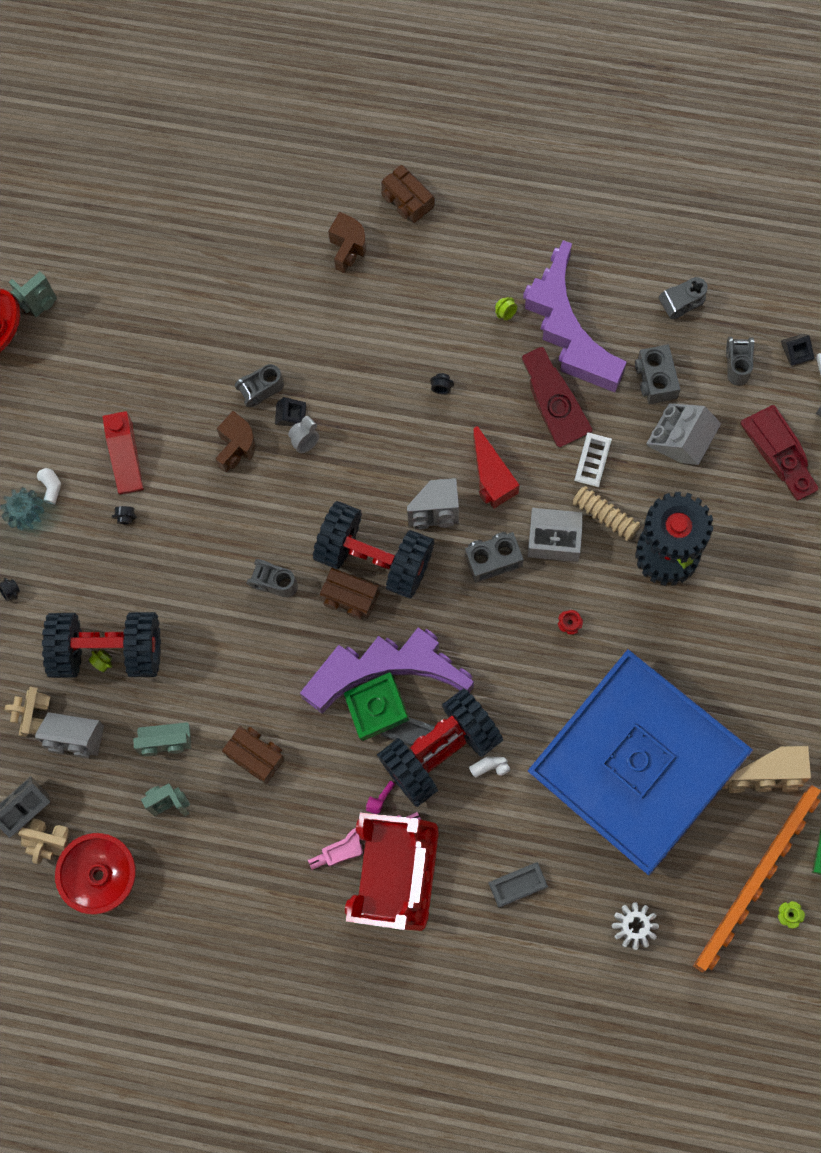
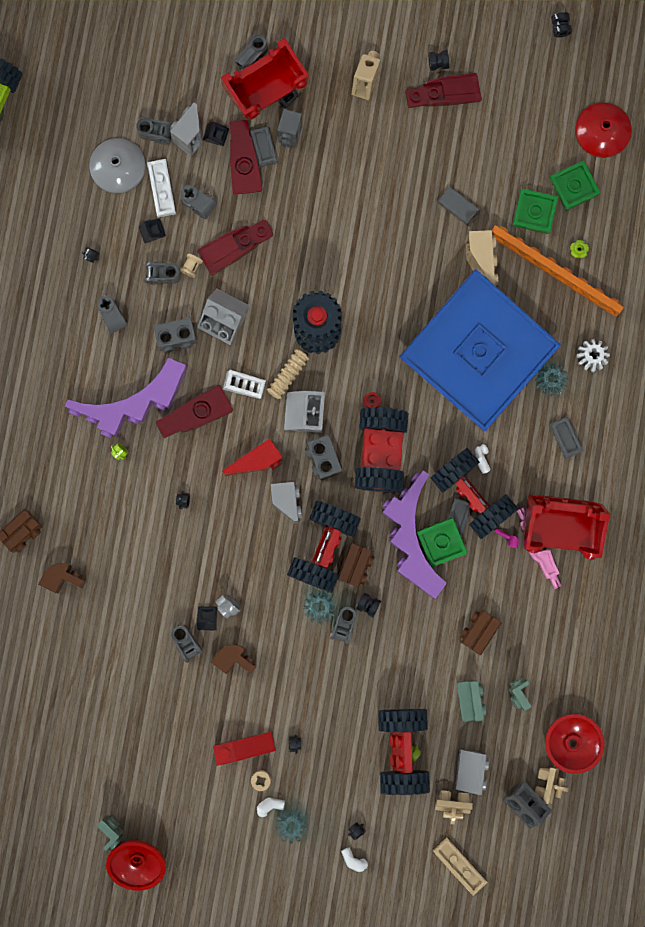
camera: 95 degrees left, 10 degrees up
(85, 478) = (263, 778): none -> tan wheel
(294, 538) = (321, 613): none -> clear light blue gear
(297, 609) = (365, 601): none -> black wheel
(501, 626) = (381, 449): none -> plate
(591, 862) = (552, 372): none -> clear light blue gear
(751, 394) = (191, 265): none -> tan bush
(762, 274) = (90, 255): none -> black plate

